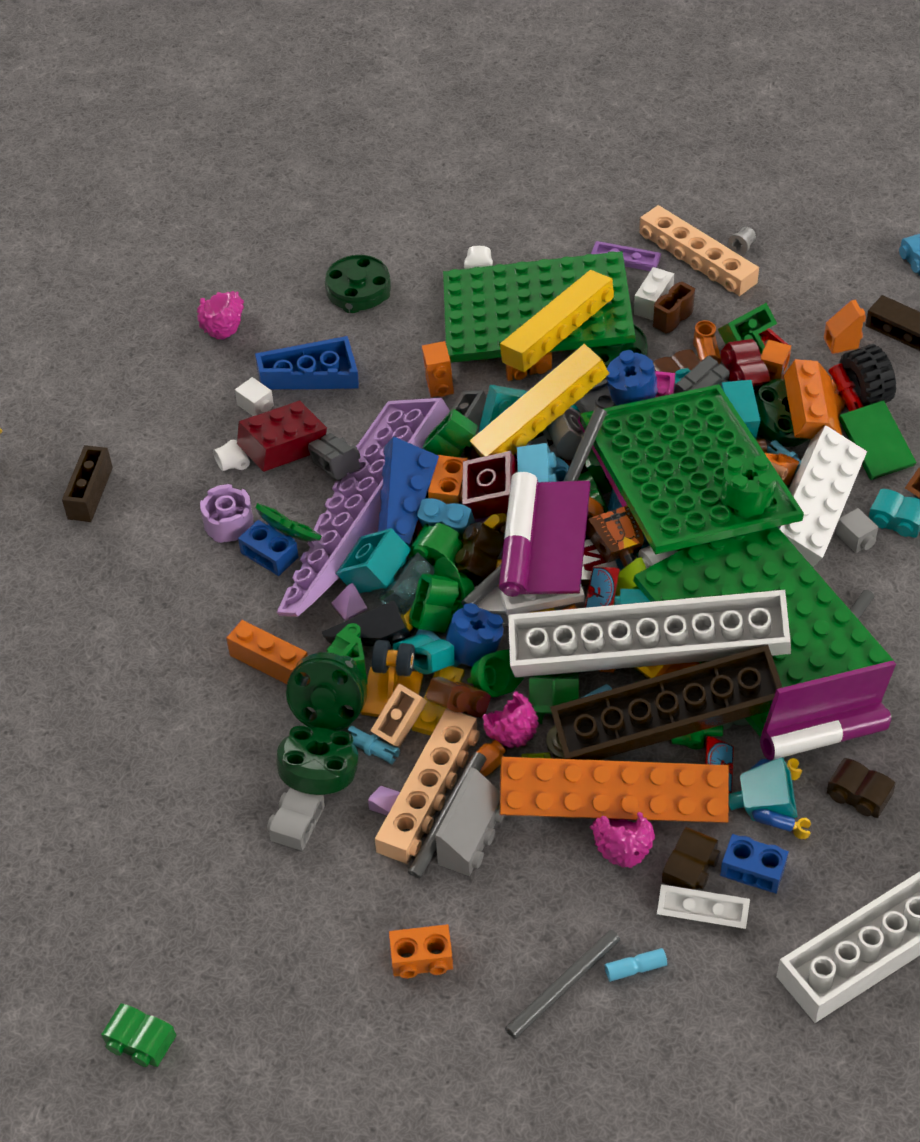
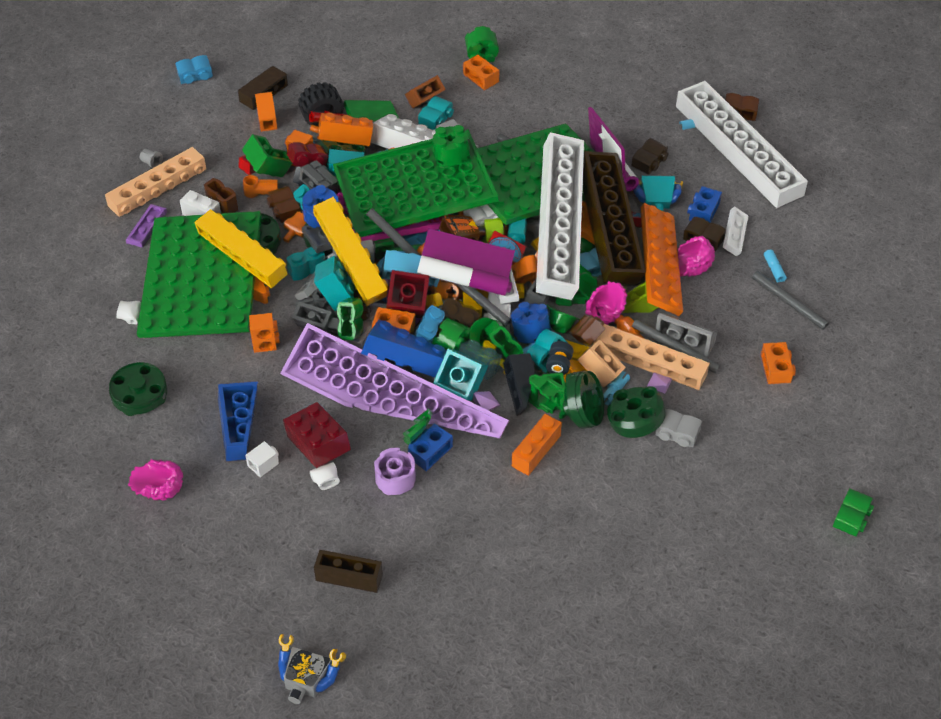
camera: 90 degrees left, 0 degrees up
(334, 456) = (343, 401): dark grey brick -> none

